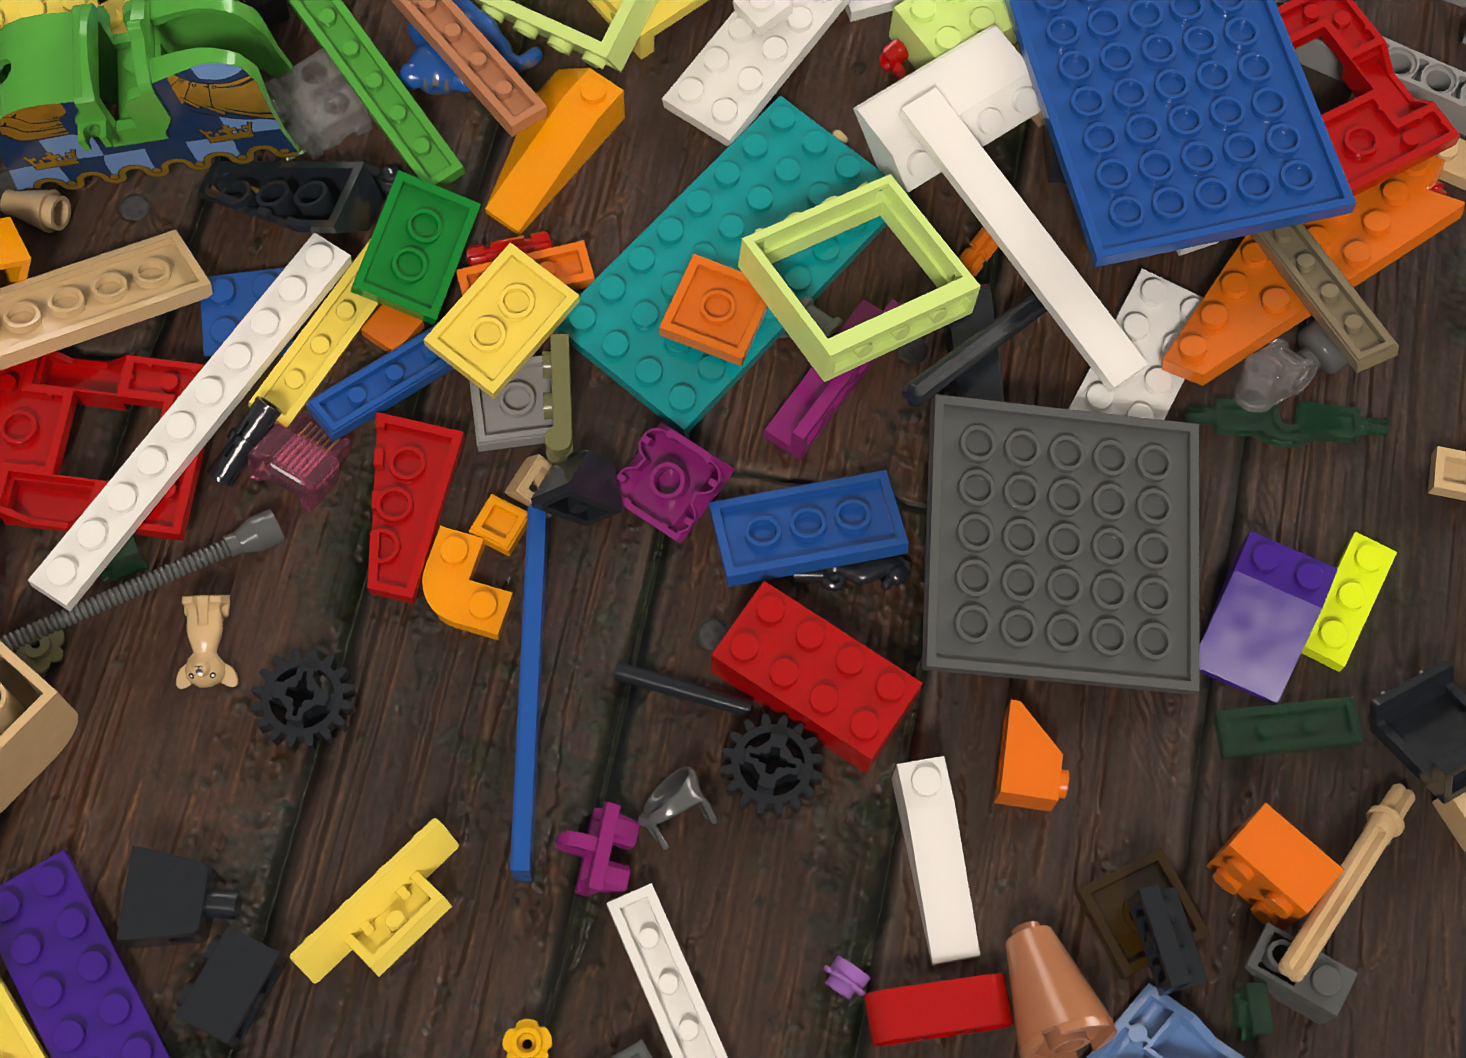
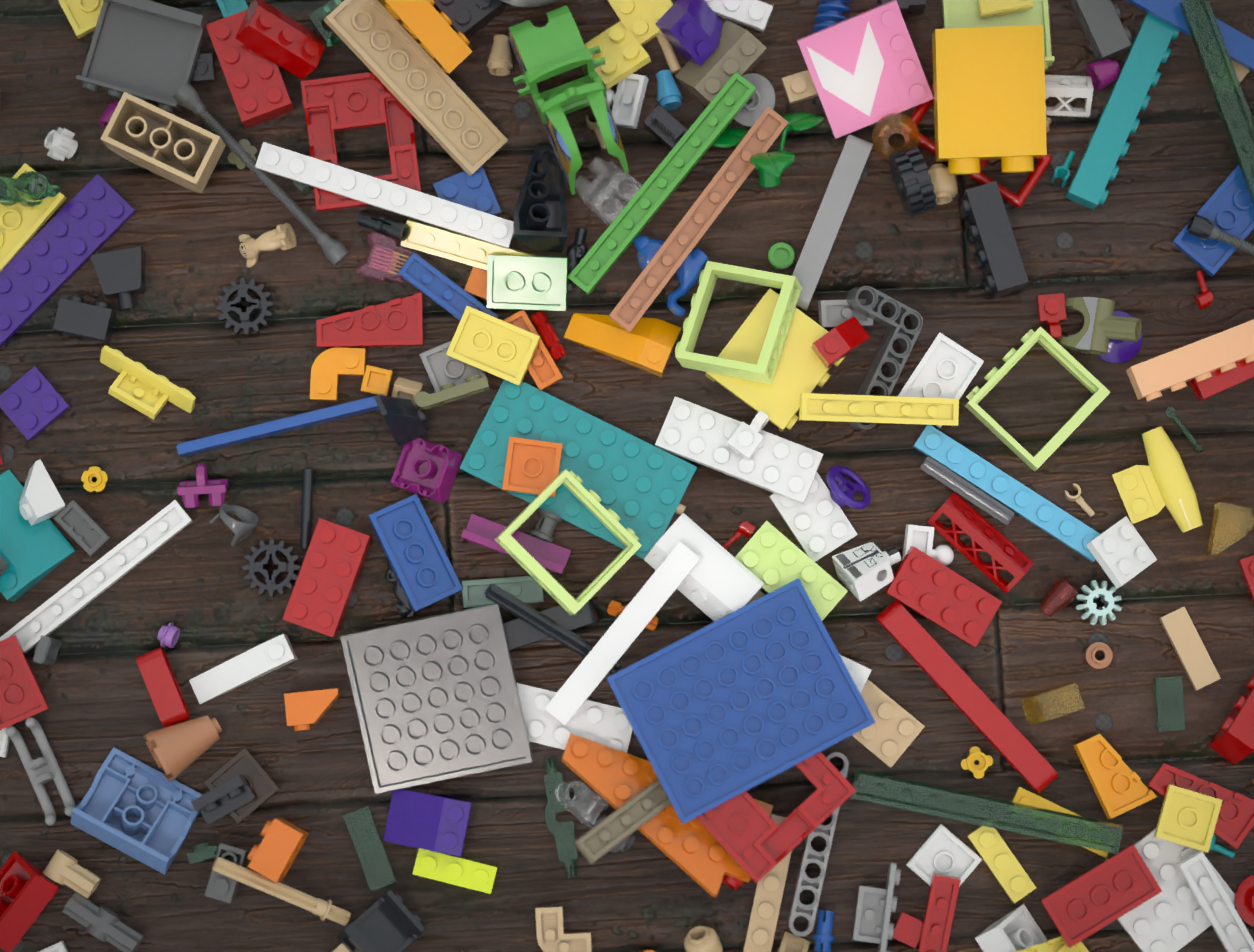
camera: 80 degrees right, 15 degrees up
(900, 424) = (523, 588): none -> sand green tile

